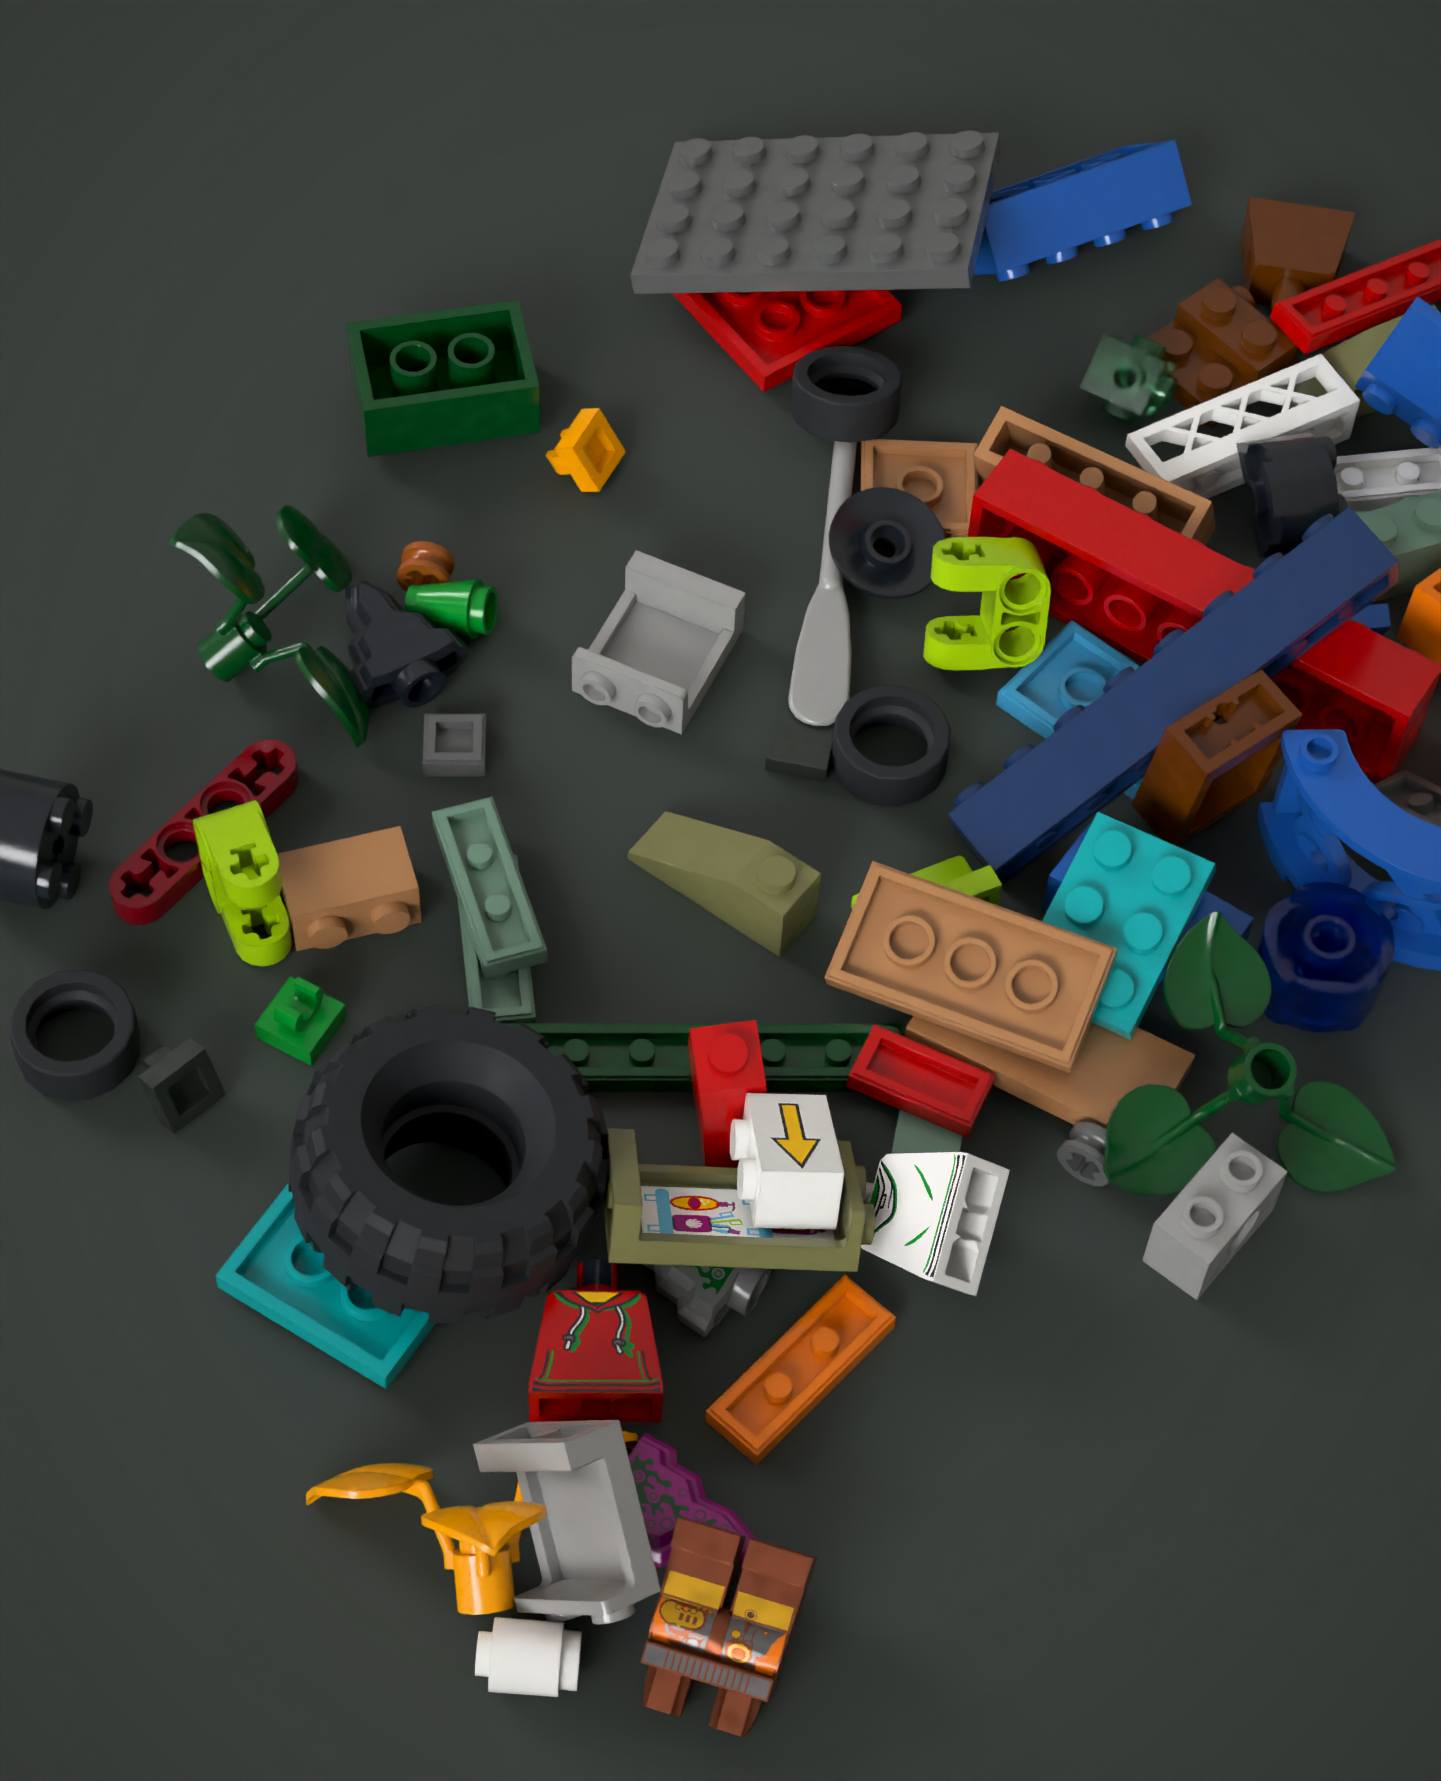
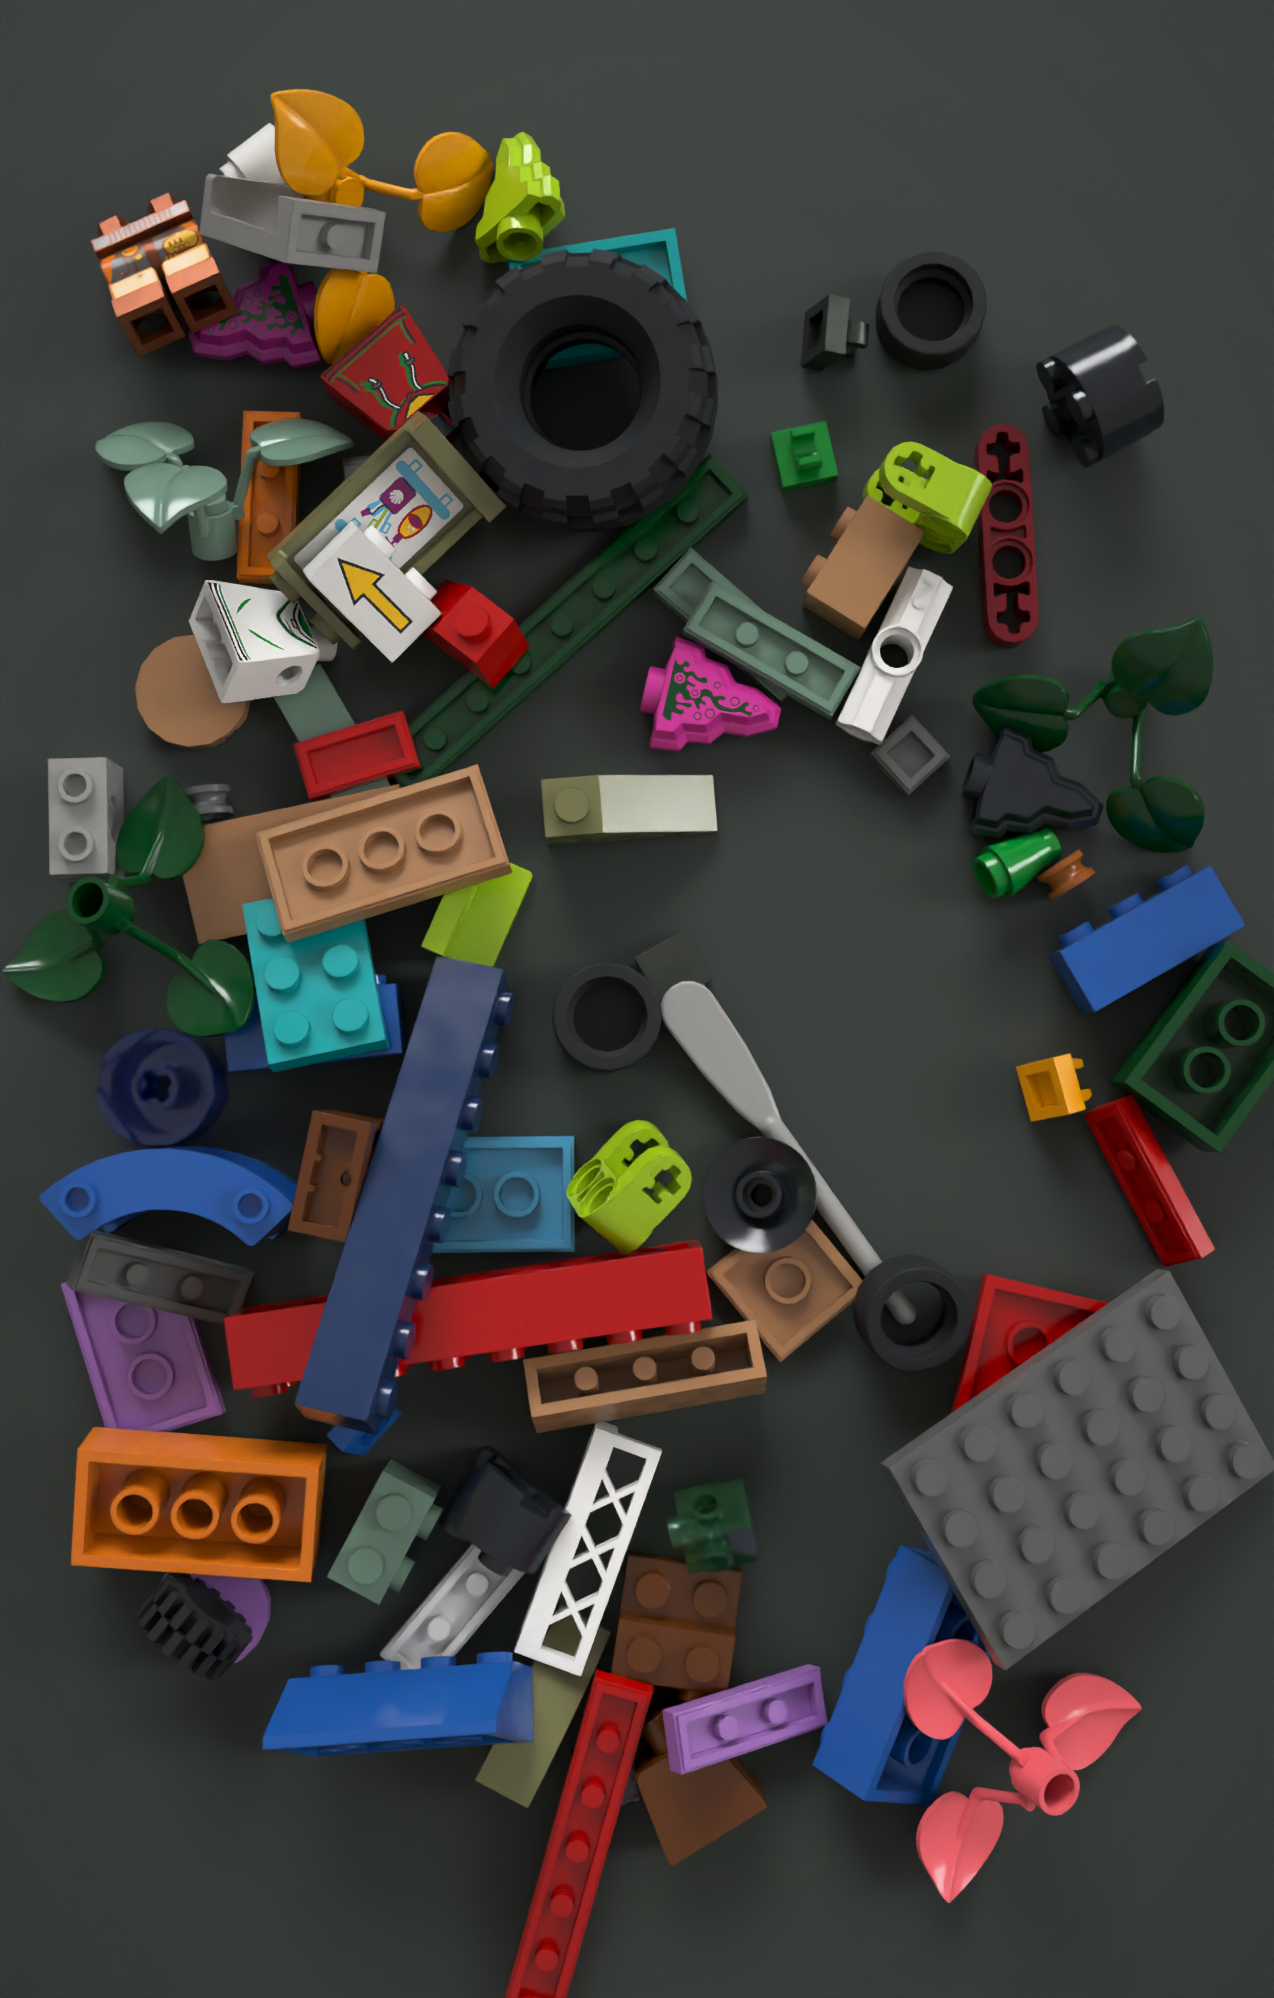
camera: 140 degrees right, 30 degrees up
(325, 1410) = (519, 205): none -> lime rock
(414, 484) = (1145, 937): none -> blue brick
(415, 792) = (908, 625): none -> white piece
(581, 345) = (1148, 1181): none -> red tile
(585, 904) = (700, 701): none -> dark pink rock
(660, 643) = (842, 955): light grey panel -> none
(907, 1307) = (171, 490): none -> sand green plant
(1032, 1264) = (181, 699): none -> medium nougat tile
(1035, 70) = (1082, 1722): none -> coral plant
(1217, 253) = (744, 1718): none -> medium lavender tile

